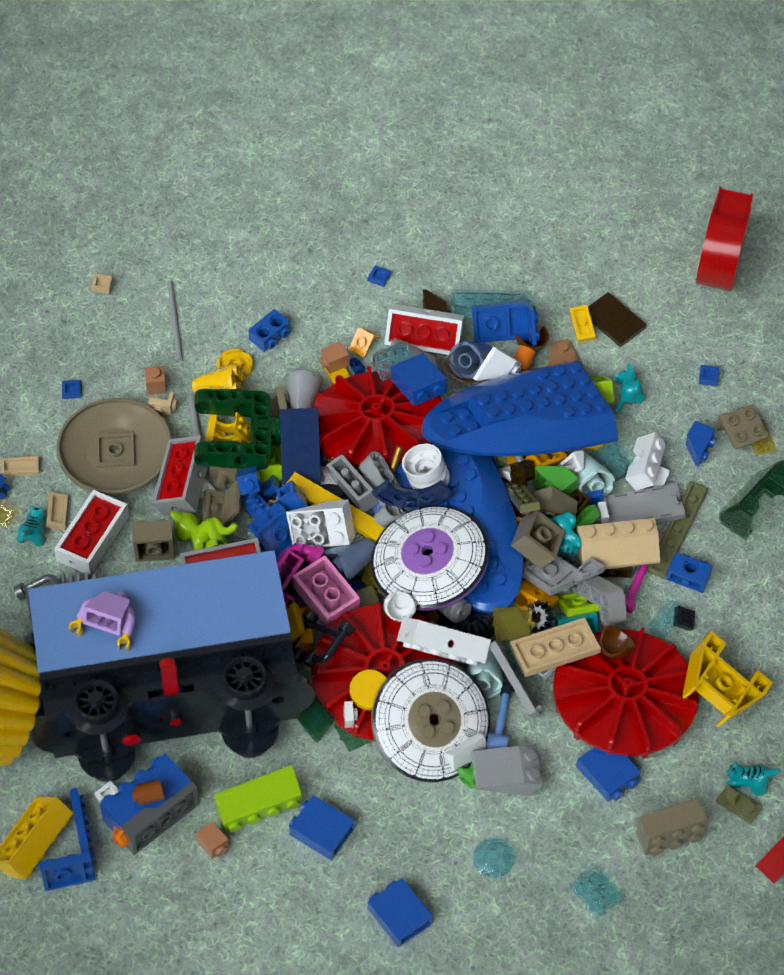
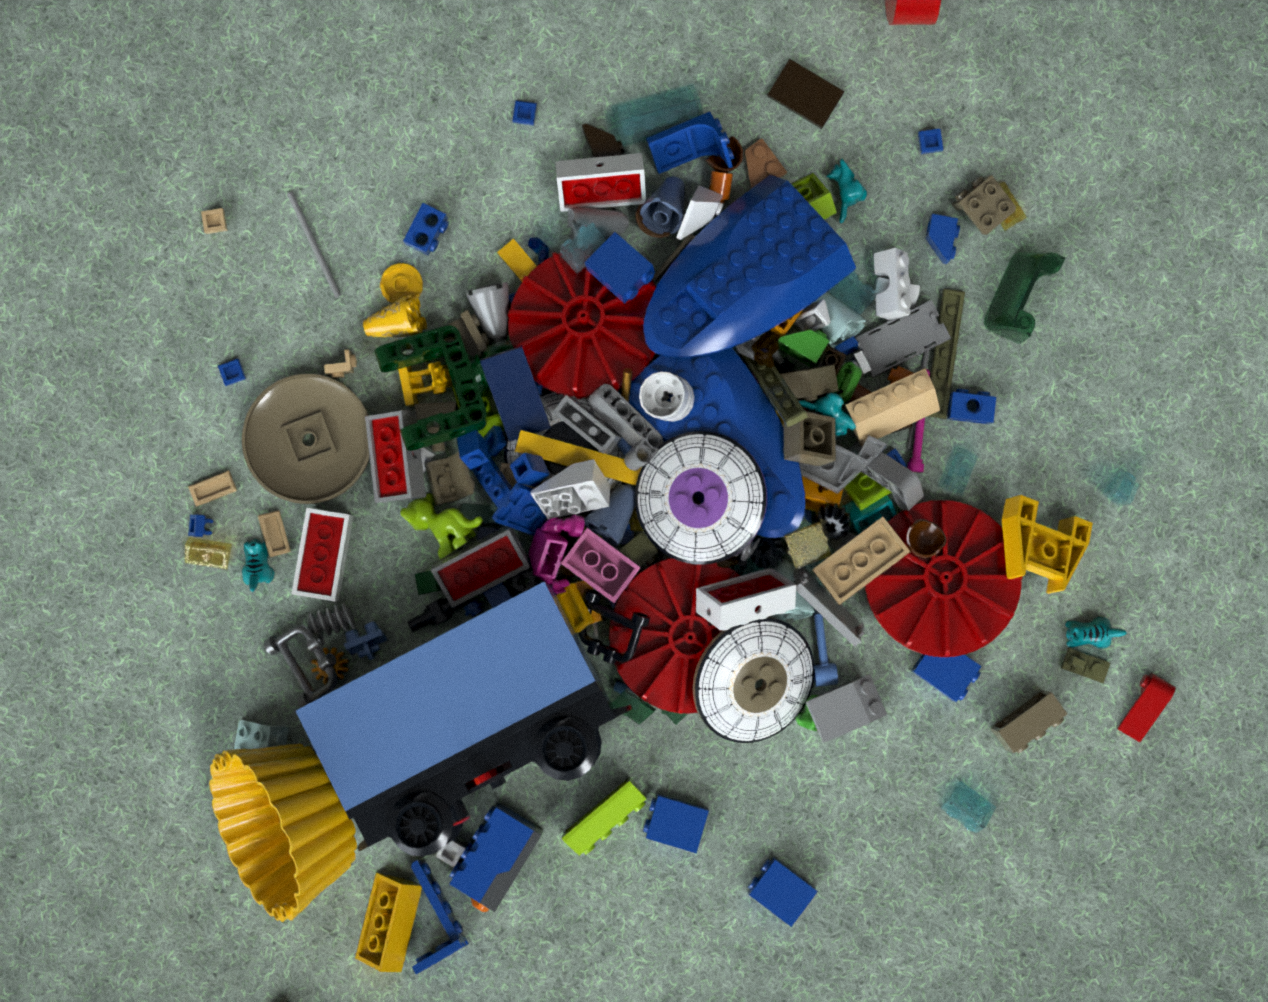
camera: 15 degrees left, 30 degrees up
(109, 614) = (396, 727): lavender torso -> none
(148, 792) = (496, 863): dark orange brick -> none
(153, 540) = (392, 546): dark tan brick -> none
(155, 380) = (321, 336): nougat brick -> none
(193, 415) = (384, 376): light grey bar -> none
(212, 840) = (572, 871): nougat brick -> none
(334, 357) = (510, 248): nougat brick -> none
(350, 714) = (669, 699): white plate -> none
(362, 341) = (535, 210): light orange bracket -> none
(365, 687) = (679, 670): yellow tile -> none
(399, 605) = (688, 572): white hair -> none
(412, 498) = (662, 436): dark blue tile -> none
(462, 754) = (798, 699): white slope -> none
(493, 858) = (856, 800): clear light blue dish -> none
(582, 323) = (772, 113): yellow plate -> none
(684, 618) = (979, 465): black tile -> none

